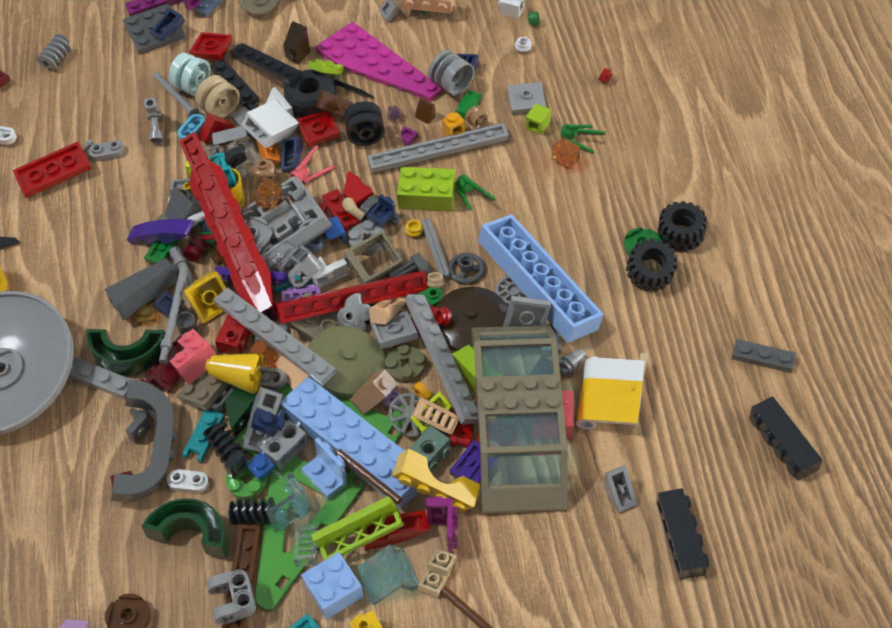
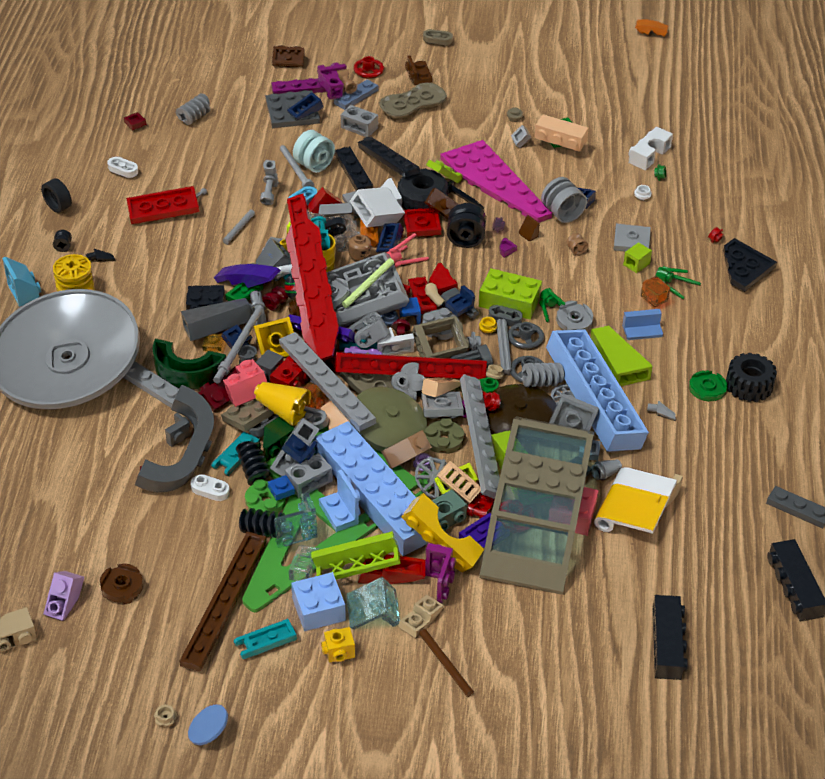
camera: 10 degrees right, 10 degrees down
(106, 150) = (217, 200): light grey plate -> none
(123, 264) = (204, 295): none -> black plate
(135, 177) = (238, 227): none -> light grey bar
(192, 515) = (200, 512): dark green brick -> none
(209, 327) = (269, 362): none -> dark grey brick
(211, 46) = (342, 133): red plate -> none
(217, 96) = (334, 174): tan wheel -> none
(226, 25) = (359, 121): none -> light grey brick
(232, 611) = (231, 588): light grey piece -> none
(235, 464) = (258, 479): black tile -> none
(268, 193) = (356, 260): clear orange brick -> none
(280, 255) = (353, 315): clear plate -> none
(285, 216) = (367, 283): none -> yellowish green bar
(296, 43) = (423, 146): dark brown slope -> none
(329, 251) = (401, 326): none -> dark red plate
(369, 477) = (380, 515): reddish brown bar -> none
(406, 251) = (474, 341): none -> light grey plate
(421, 390) = (452, 456): light orange tile -> none
(428, 211) = (501, 312): none -> dark grey beam
(438, 147) = (533, 262): light grey plate -> none
(451, 122) = (552, 242): light orange brick -> none
(453, 225) = (525, 331): none -> dark grey piece
(468, 101) = (576, 227): green tile -> none
(483, 272) = (542, 374): none -> light grey piece
(493, 209) = (571, 308): none -> light grey plate
(553, 235) = (622, 359): none -> lime slope
(563, 192) = (642, 324): none -> medium blue panel
(606, 282) = (661, 410): none -> light grey bar
(620, 489) = (619, 584): light grey slope -> none
(642, 102) = (746, 264): none -> black plate
(658, 252) = (716, 391): black tyre -> none

